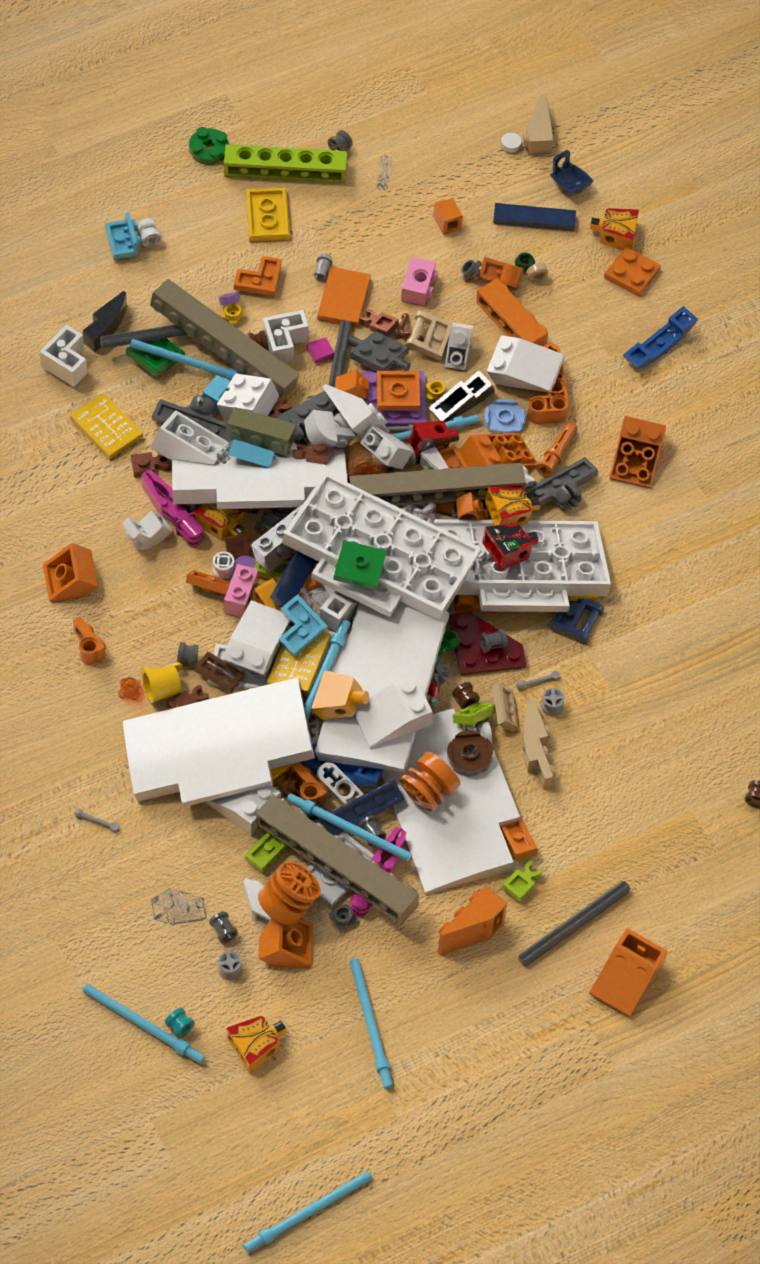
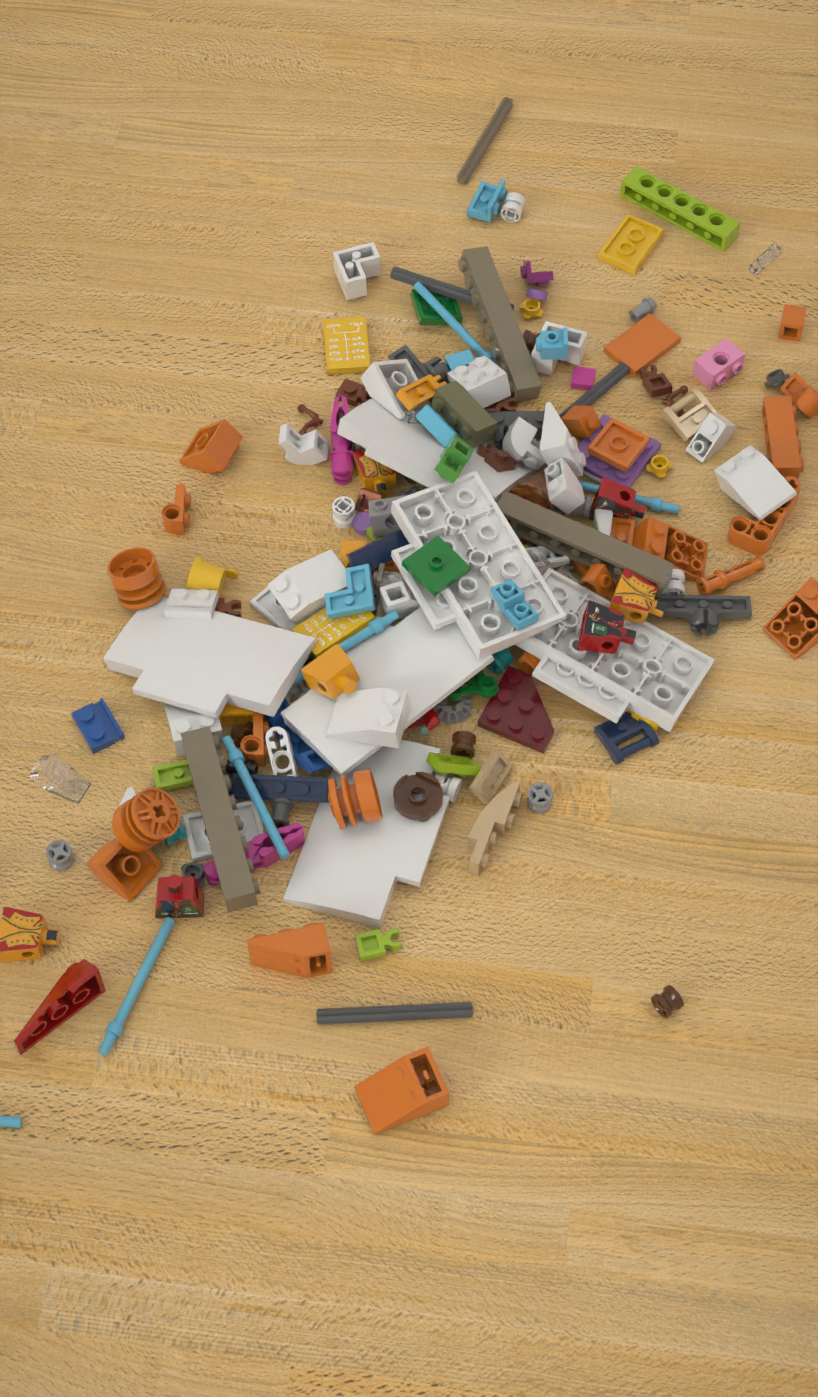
camera: 40 degrees right, 0 degrees up
(74, 184) = (484, 140): none -> dark tan axle
(105, 321) = (419, 258): black slope -> none
(108, 714) = (136, 578): none -> orange wheel
(114, 827) = (70, 678): light grey hinge -> none
(129, 682) = (176, 565): clear orange plate -> none
(131, 500) = (313, 423): none -> copper piece
(168, 709) = (191, 603): none -> white plate
(169, 850) = (97, 726): none -> blue plate
(188, 654) = (251, 568): dark grey wheel -> none
(203, 137) = (621, 155): green plate -> none
(204, 668) = (269, 613): reddish brown tile -> none
(208, 582) = (320, 519): orange plate -> none
(212, 432) = (419, 392): none -> light orange hinge
(215, 284) = (540, 278): none -> magenta bracket
(224, 934) = (82, 818): dark grey bush -> none
(240, 590) = (345, 529): bright pink brick -> none
(260, 282) = (579, 295): orange plate -> none
(289, 334) = (553, 344): none -> medium azure brick
(298, 468) = (454, 458): none -> bright green slope
(329, 1057) = (69, 995): none -> red wedge
(340, 141) = (744, 214): dark grey wheel -> none
(353, 938) = (179, 897): none -> red torso
(379, 352) = (632, 406): dark grey plate -> none
(437, 561) = (513, 605): none -> medium azure slope
(462, 397) = (678, 484): black slope -> none
(493, 641) = (524, 709): dark grey bush -> none
(504, 417) = (705, 522): light blue tile -> none
(519, 840) = (404, 903): orange plate -> none
(554, 676) = (563, 776): light grey hinge -> none

